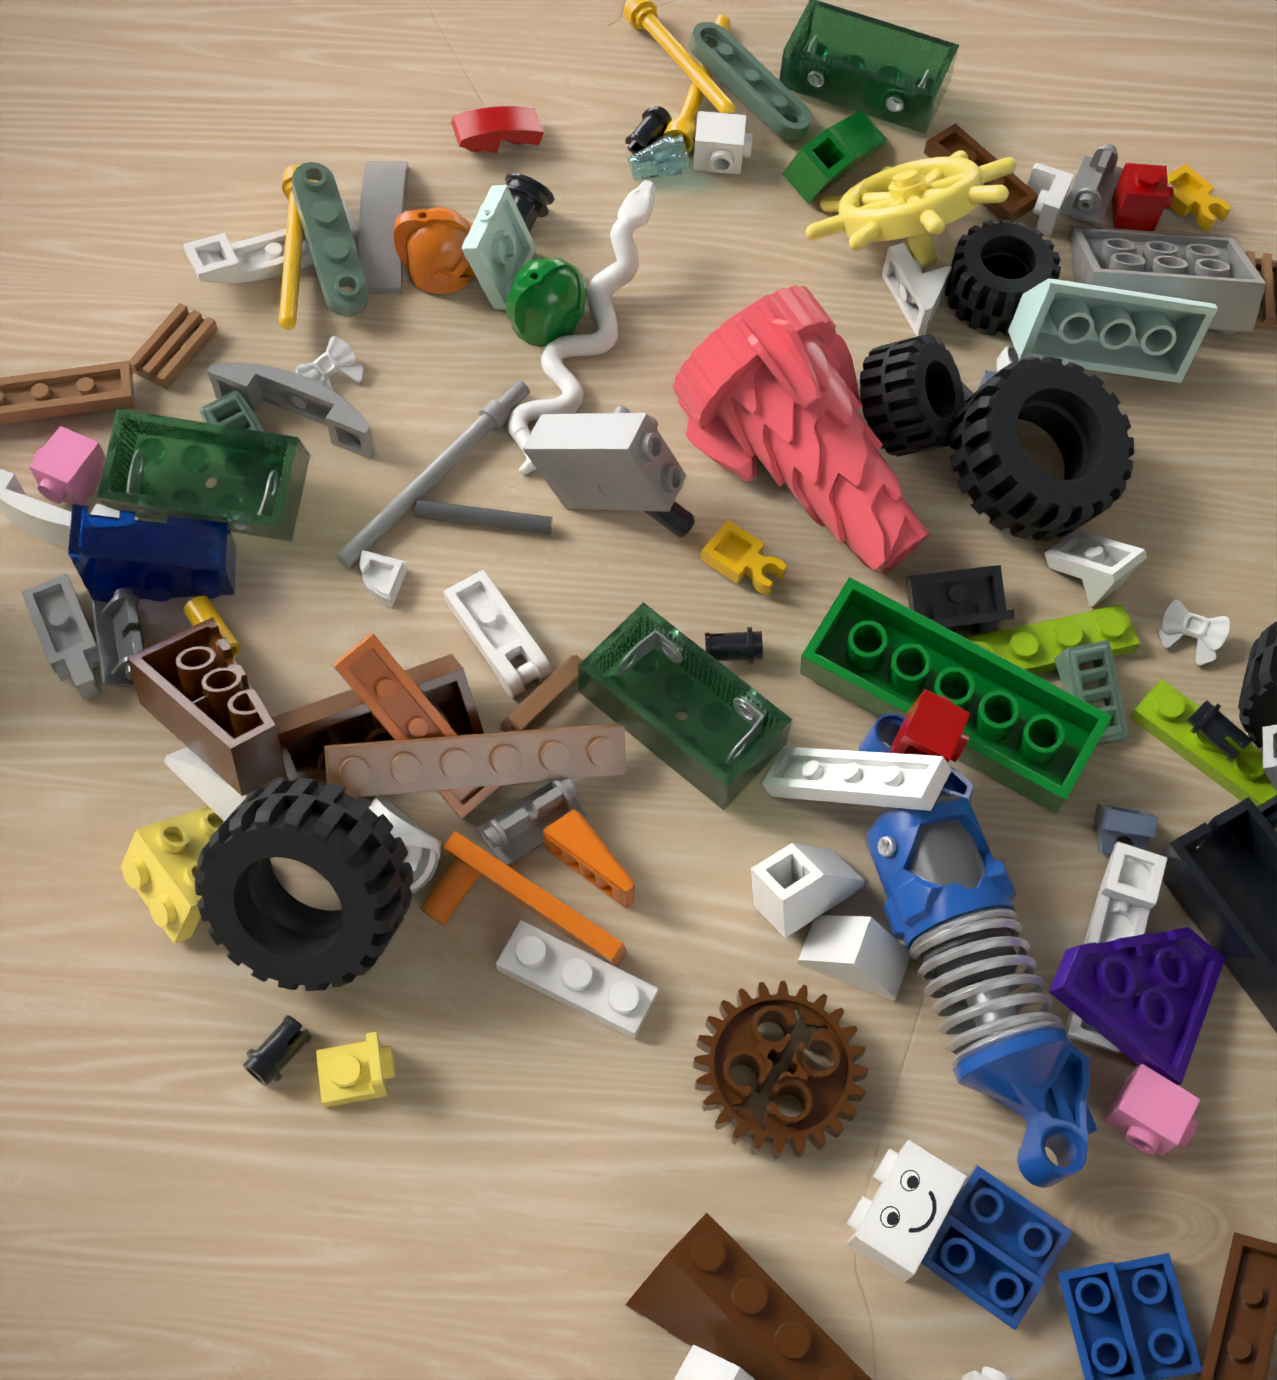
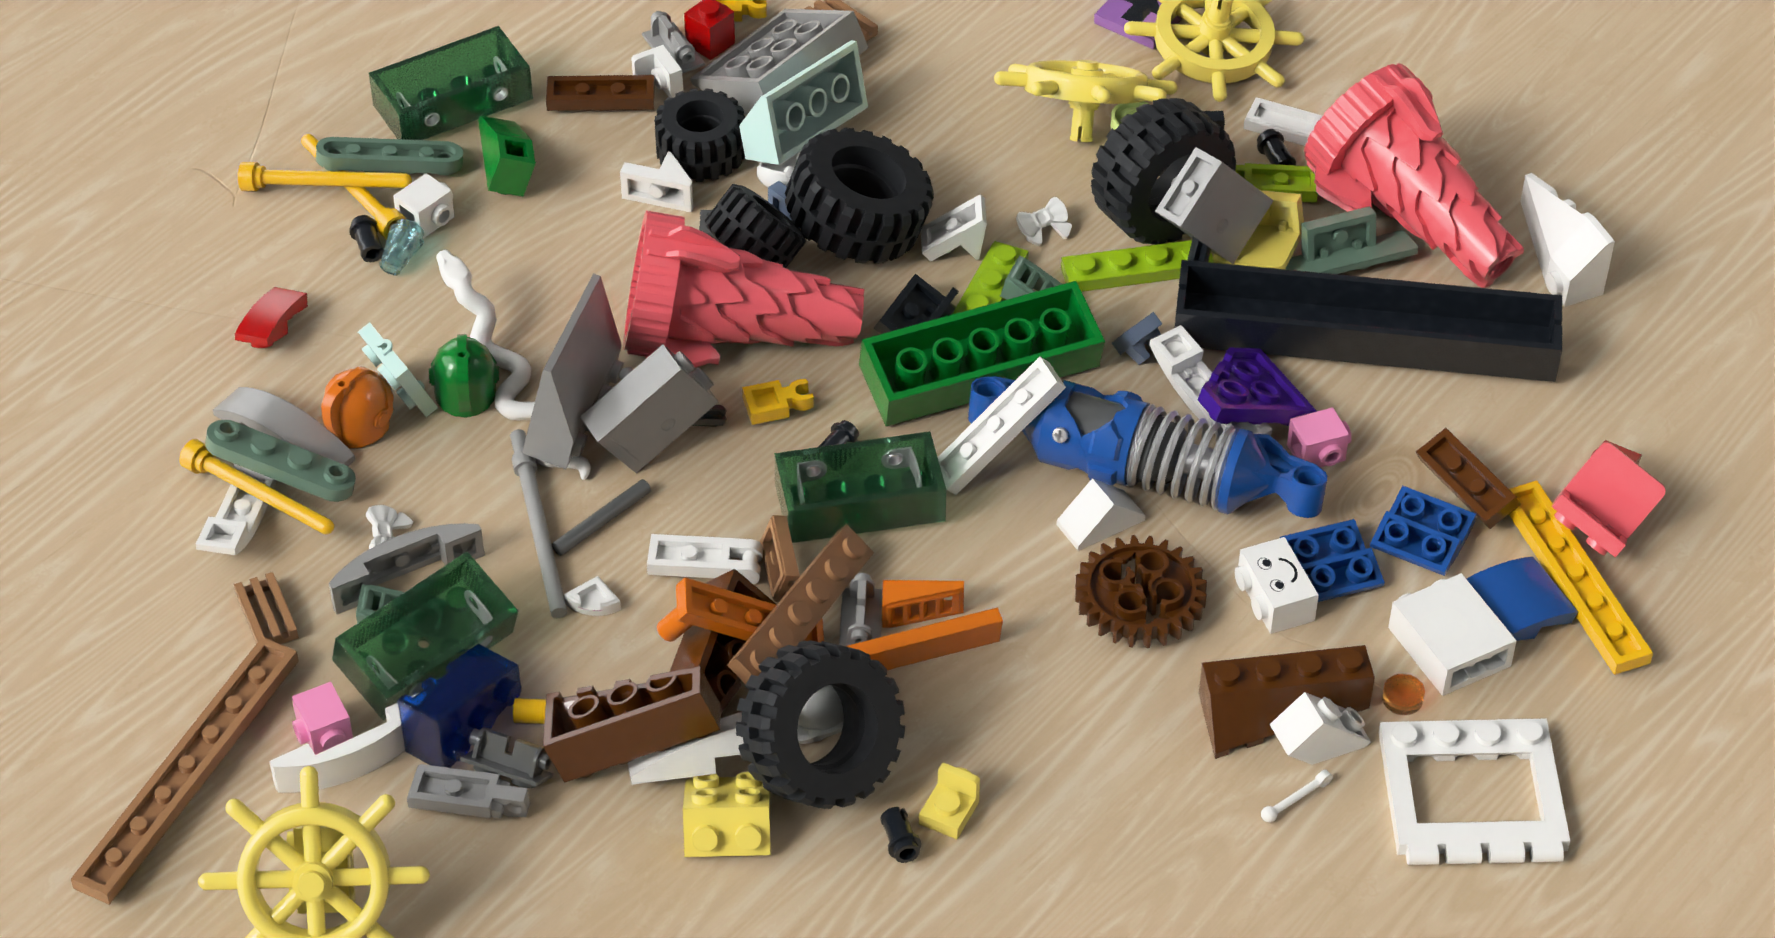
camera: 50 degrees left, 15 degrees down
(530, 197) = (352, 342): black piece -> none
(577, 979) = (990, 660): white plate -> none
(592, 369) = (575, 379): none -> light grey slope
(801, 885) = (1037, 510): white slope -> none
(912, 202) = (602, 132): light yellow piece -> none
(932, 728) = (1005, 362): red brick -> none
(1215, 727) = (1124, 248): black pin -> none

